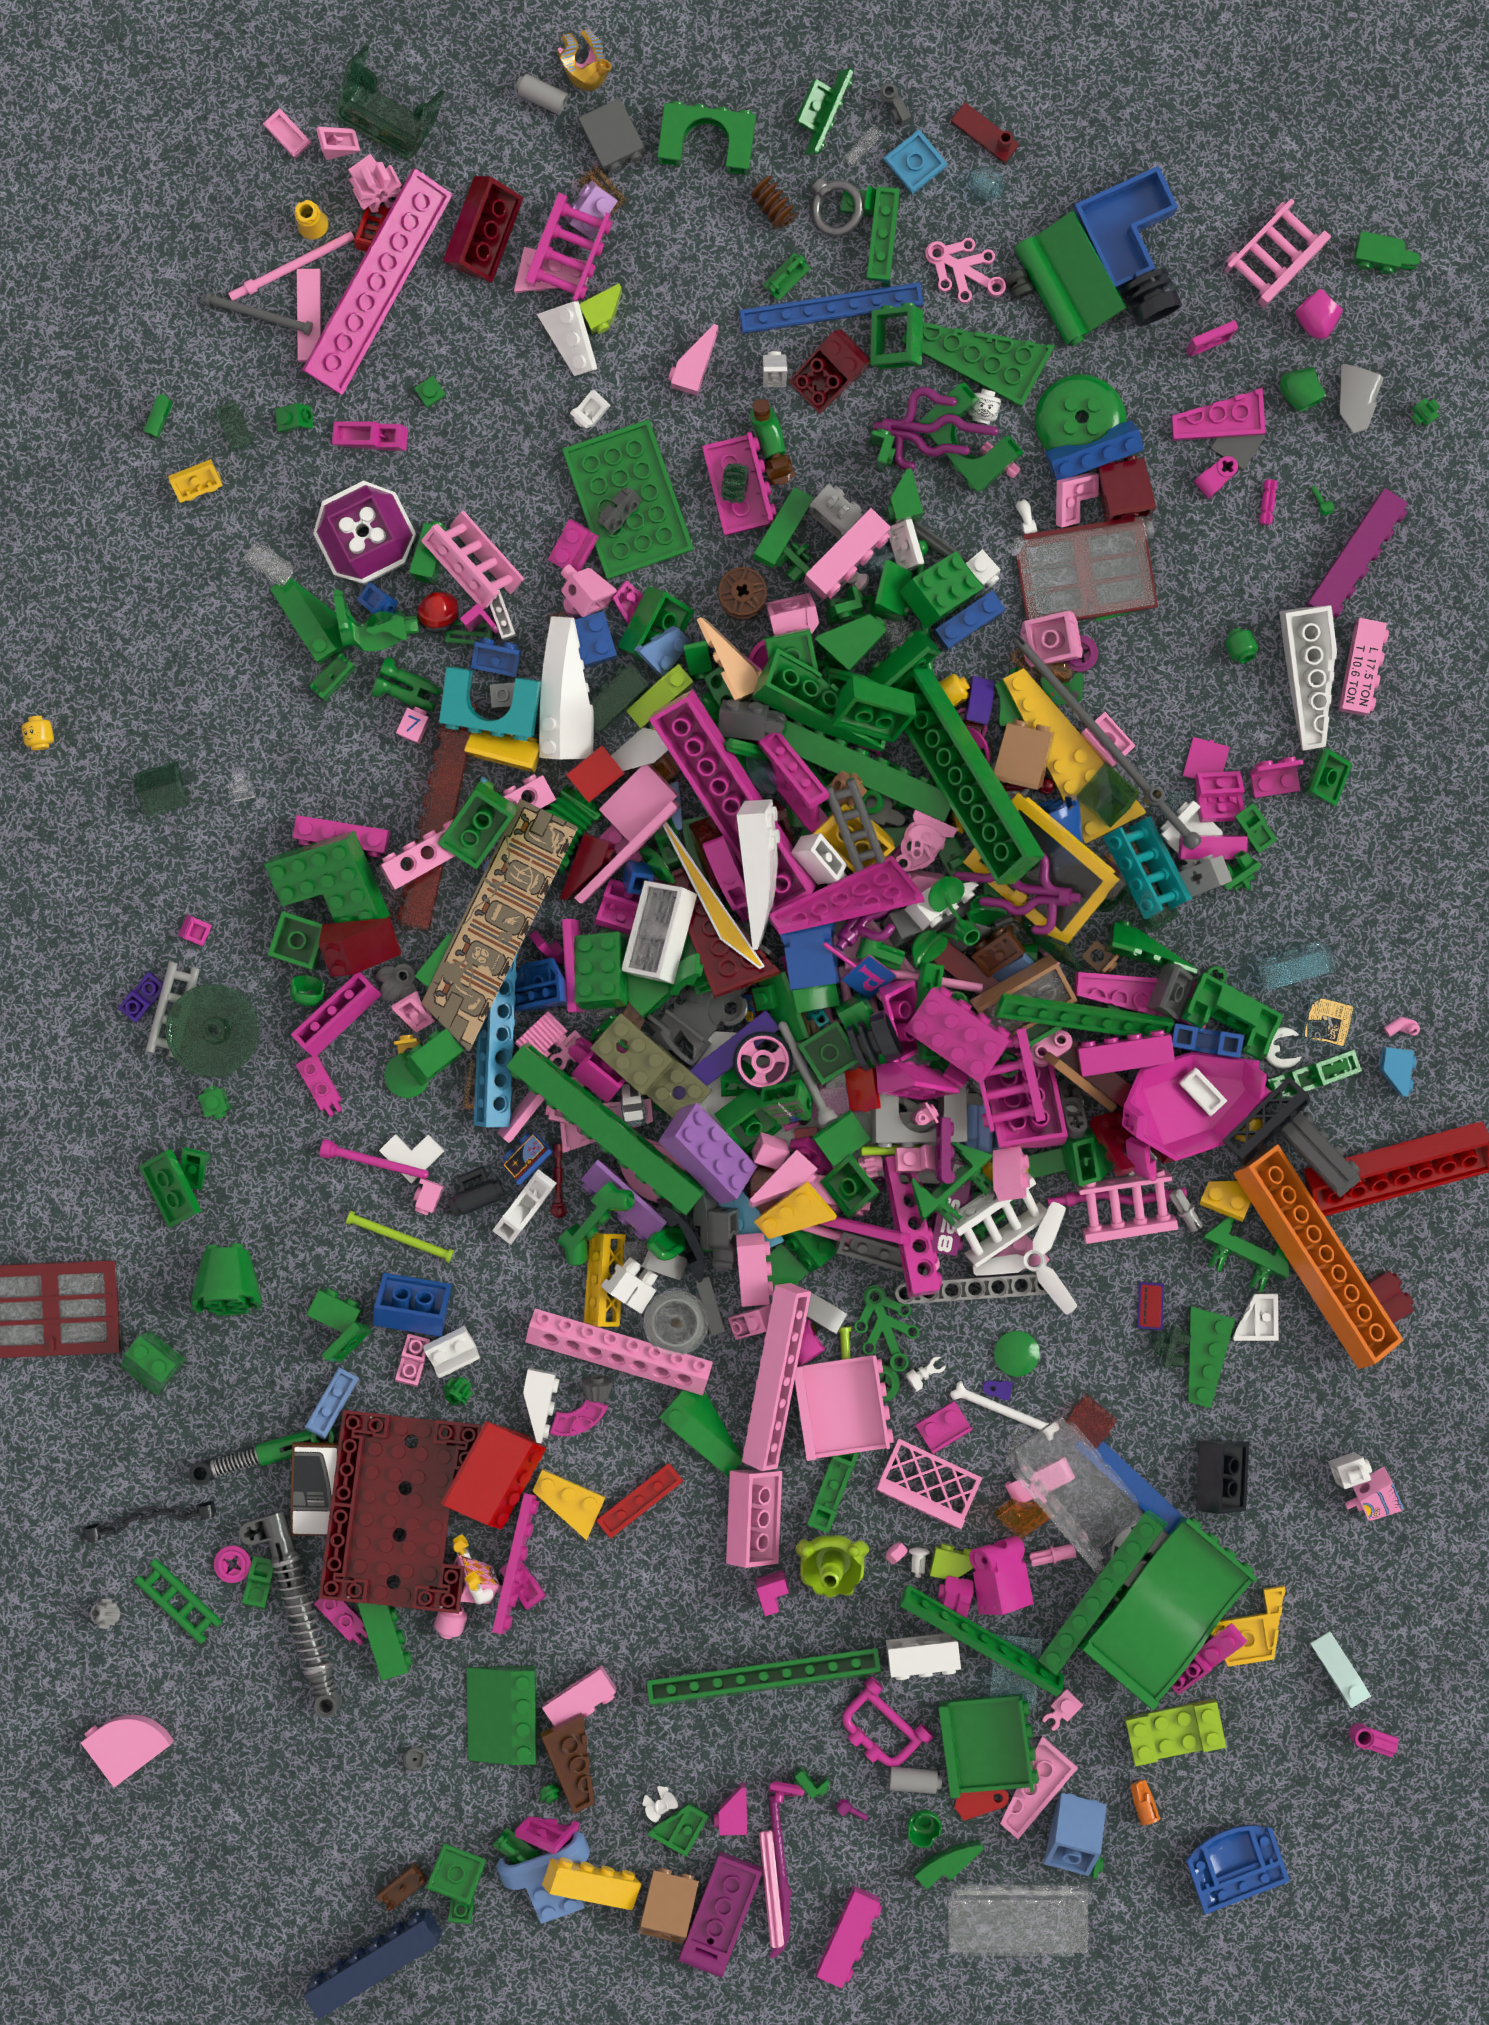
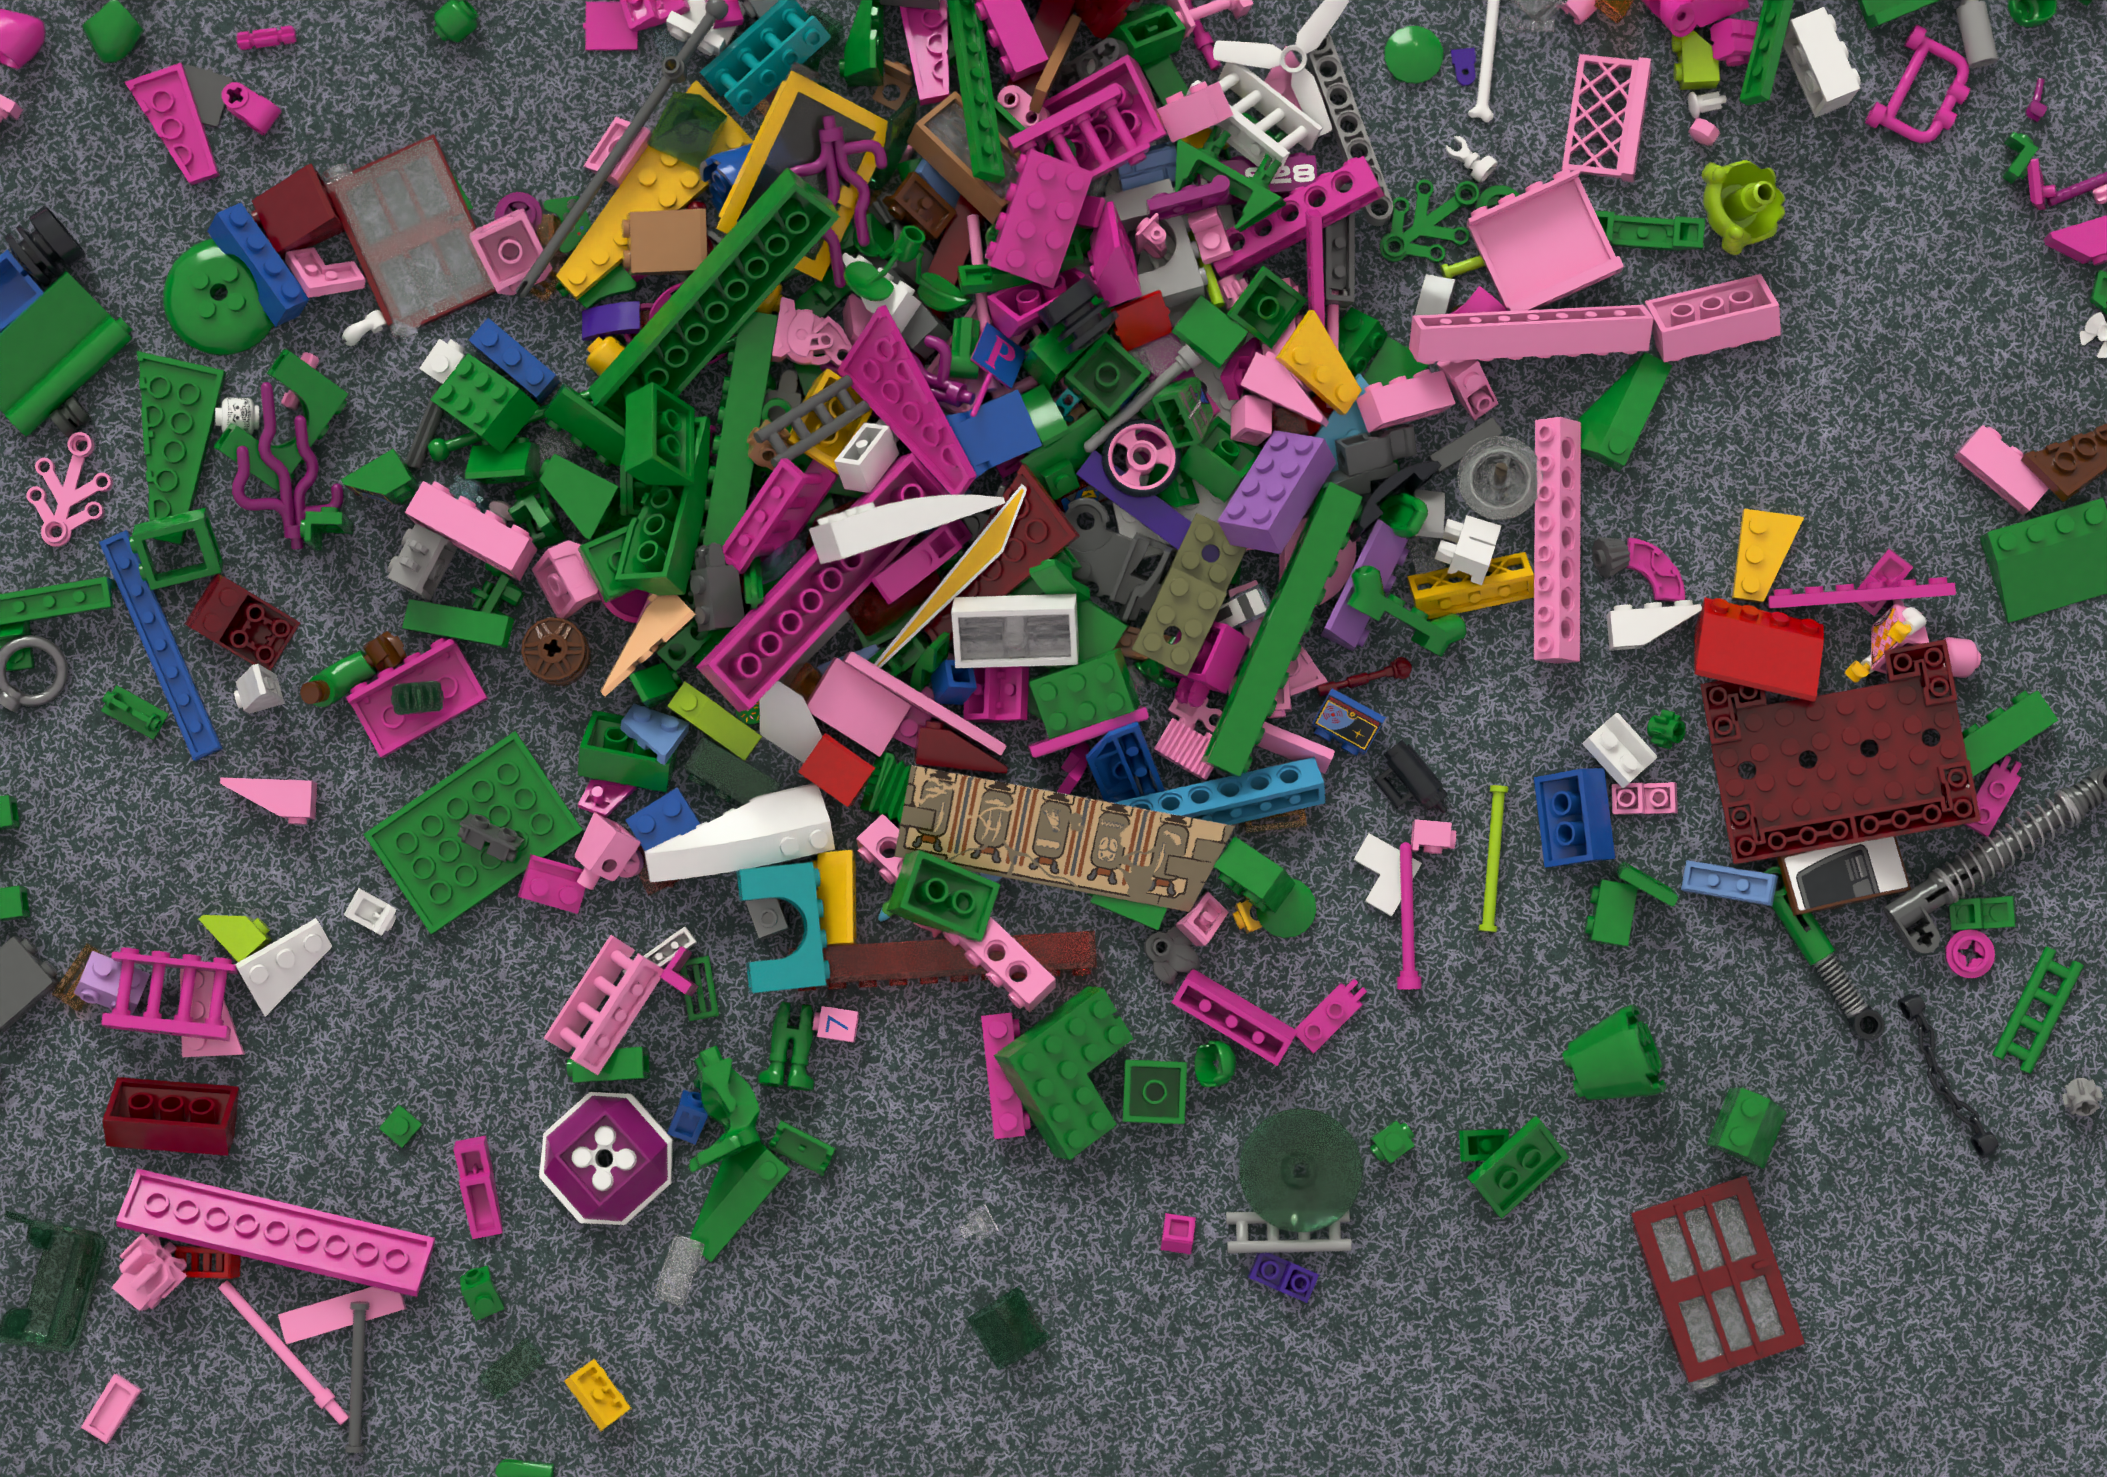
camera: 105 degrees left, 5 degrees down
(315, 225) = (228, 1340): yellow plant -> none
(337, 141) = (106, 1337): bright pink slope -> none
(357, 945) = (1139, 1010): dark red slope -> none
(438, 612) = (683, 1032): red hair -> none
(496, 657) = (721, 943): blue bracket -> none
(524, 1207) = (1410, 710): white arch -> none
(639, 1500) = (1734, 465): red plate -> none
(763, 1677) = (1907, 248): green brick -> none
(769, 1588) = (1795, 268): dark pink piece -> none
(773, 204) = (45, 752): reddish brown piece -> none
(805, 1132) = (1215, 383): dark red tile -> none
(905, 545) = (440, 462): white bracket -> none
(943, 1427) = (1531, 118): dark pink plate -> none
(1211, 338) = (78, 157): dark pink tile -> none

